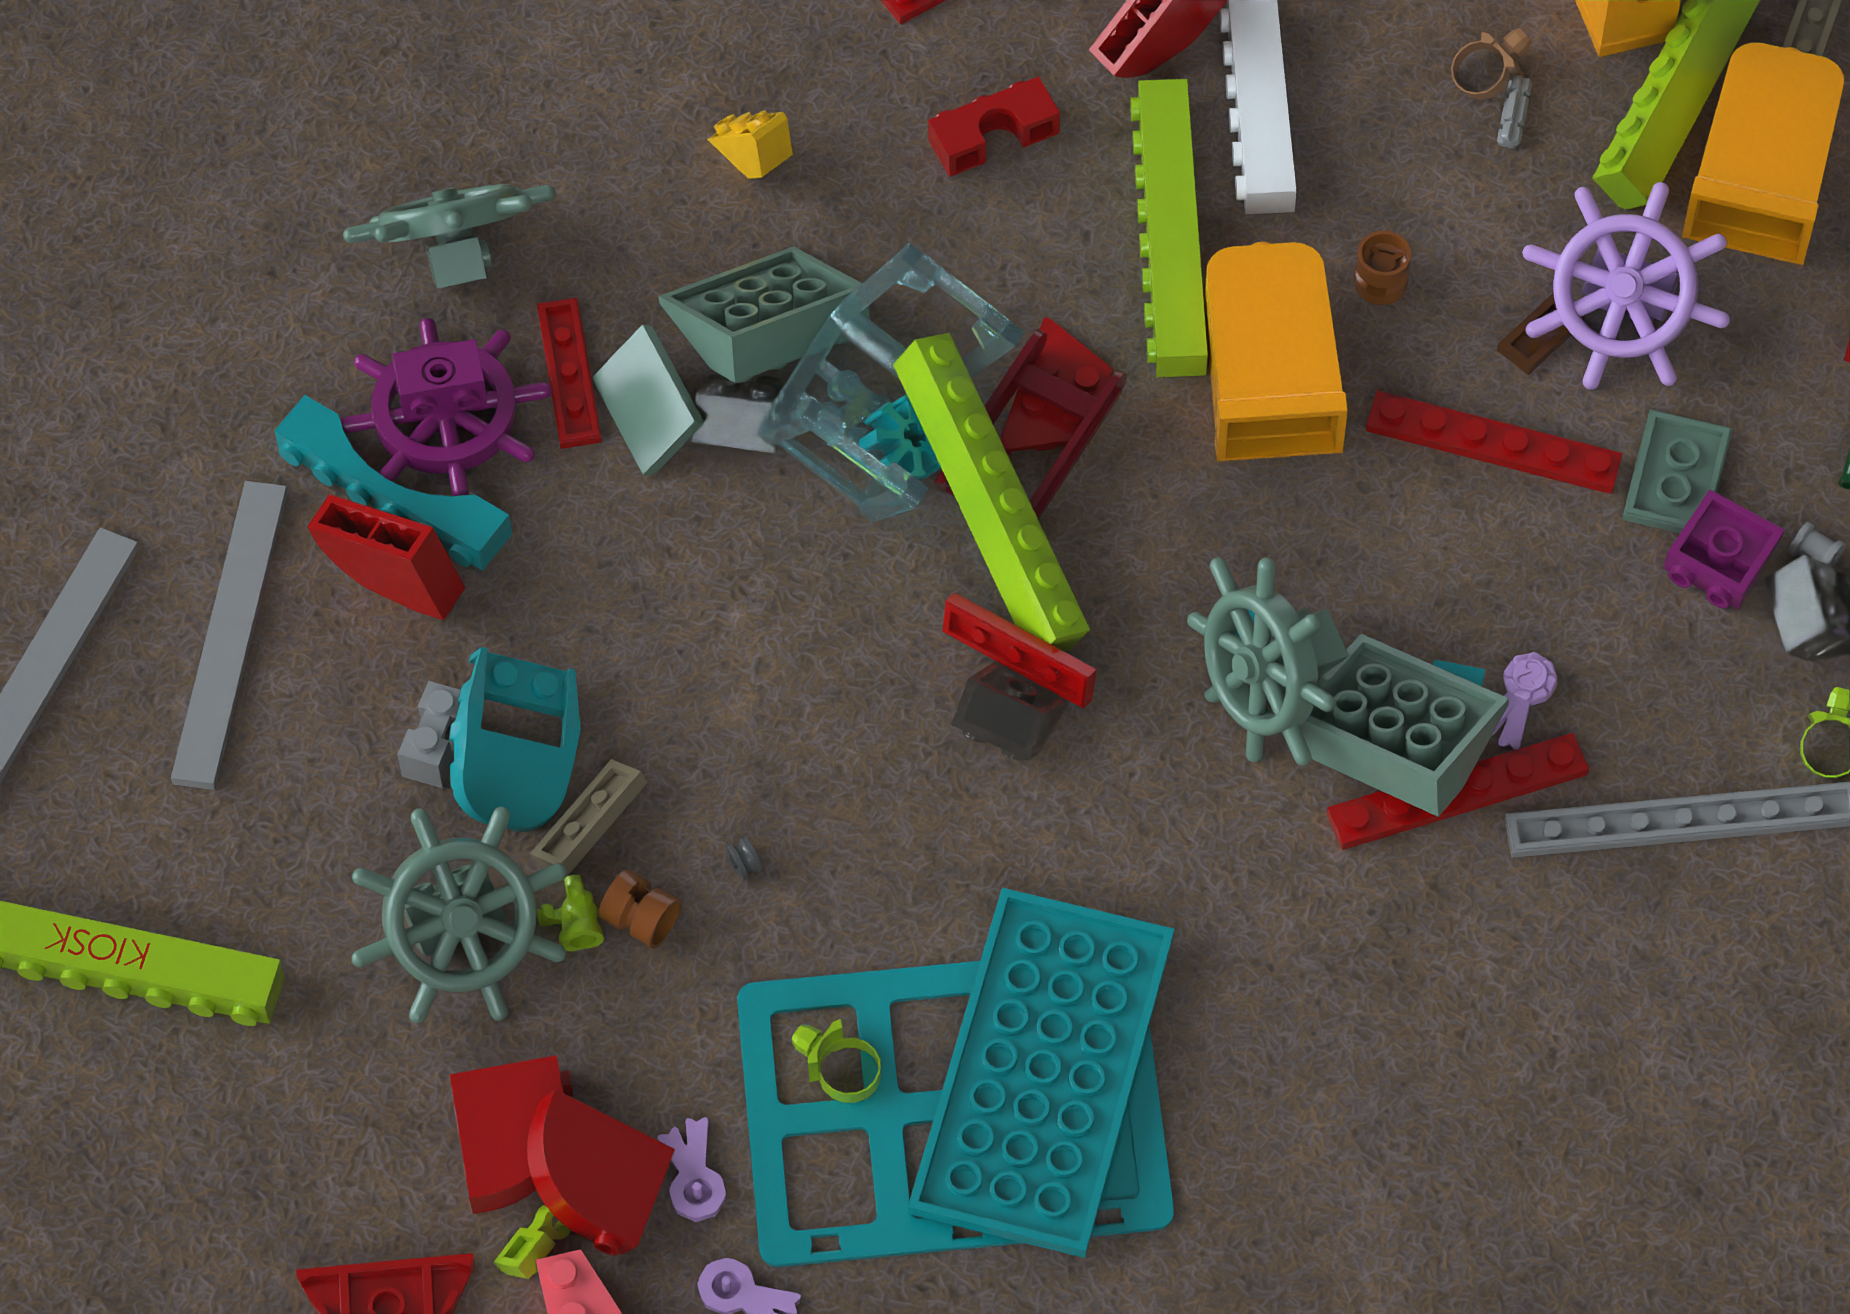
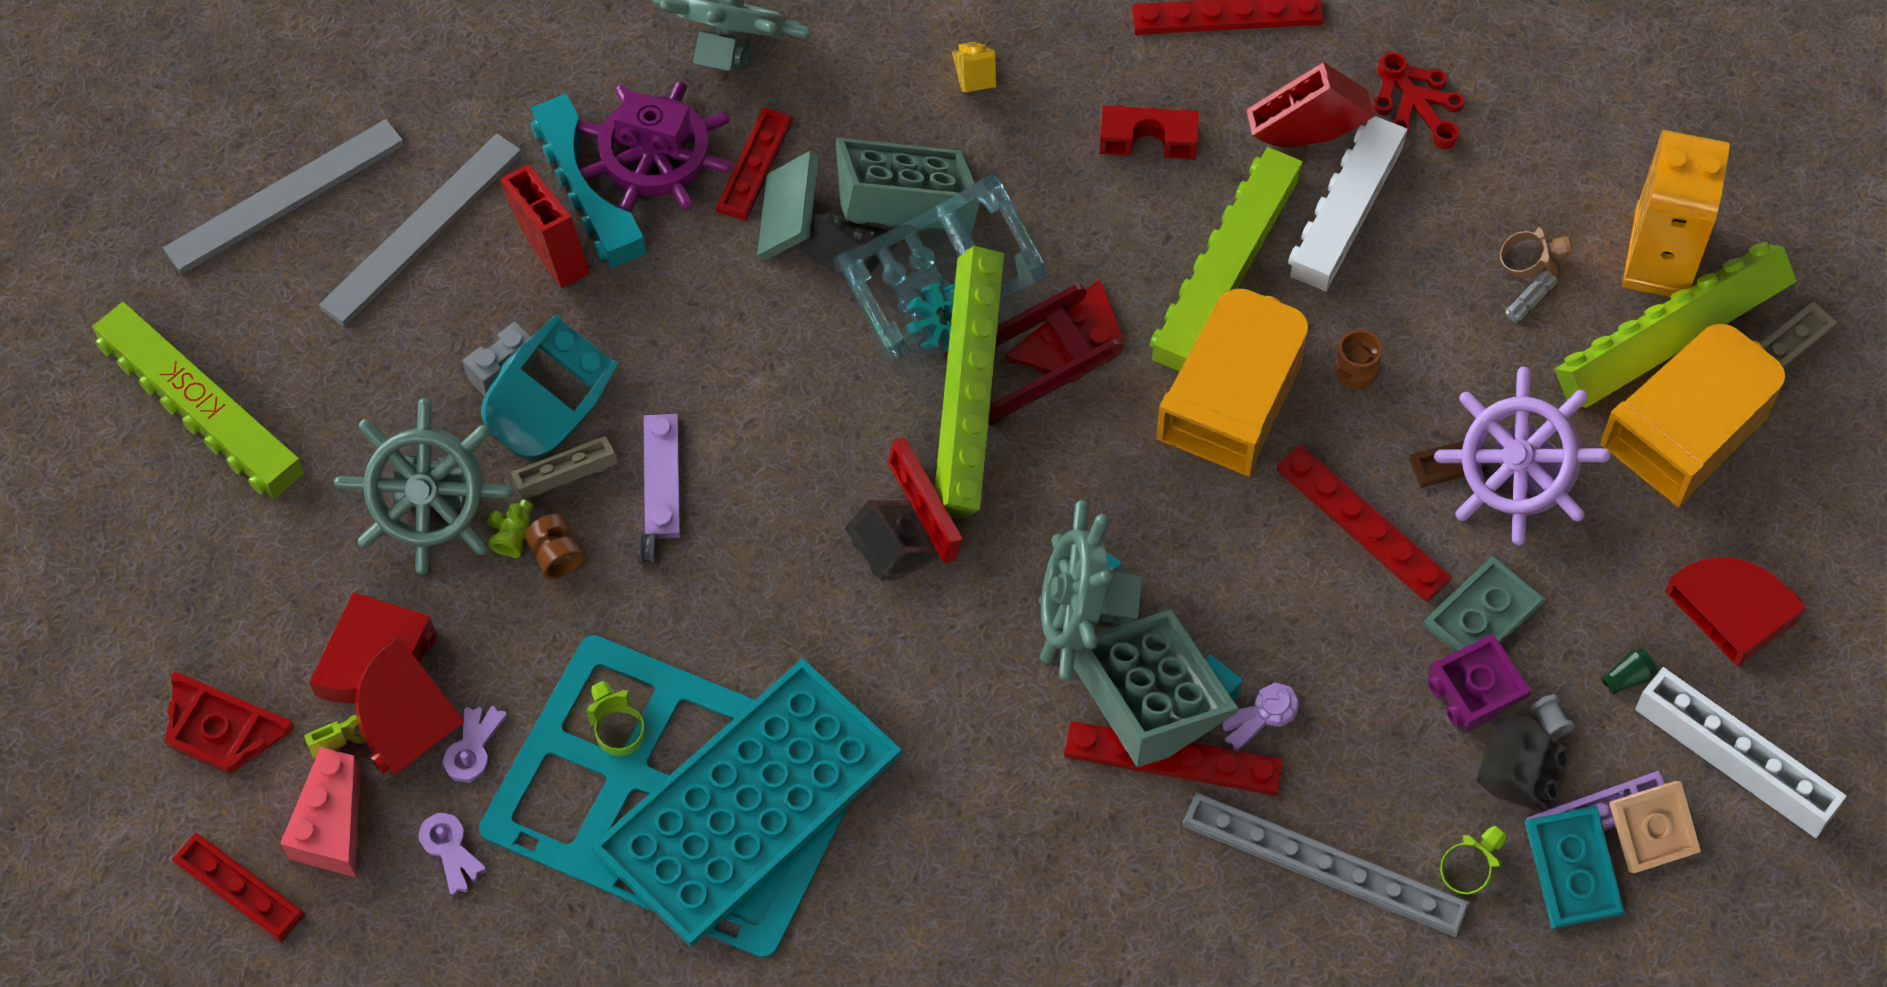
camera: 30 degrees right, 0 degrees up
(702, 771) = (661, 475): none -> lavender plate

